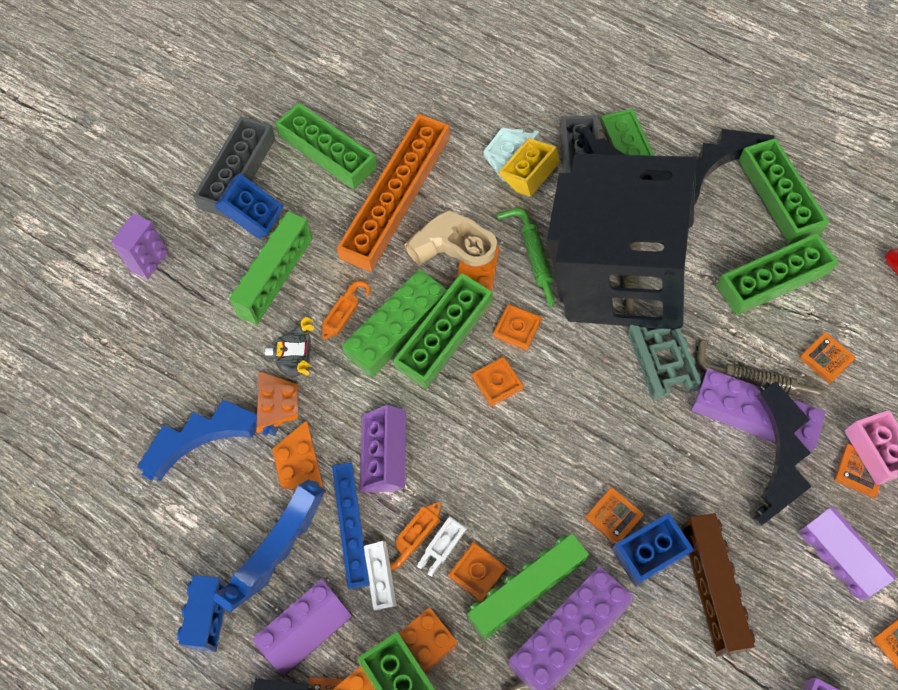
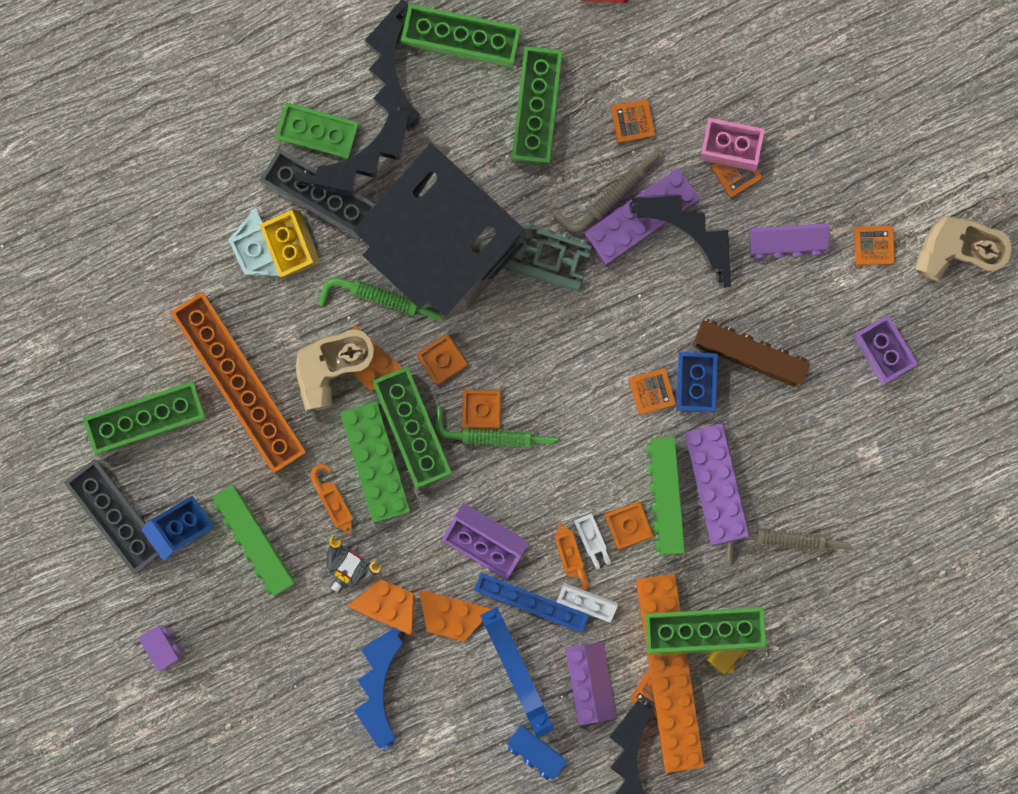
camera: 60 degrees left, 20 degrees up
(479, 402) = (490, 437): none -> bright green piece

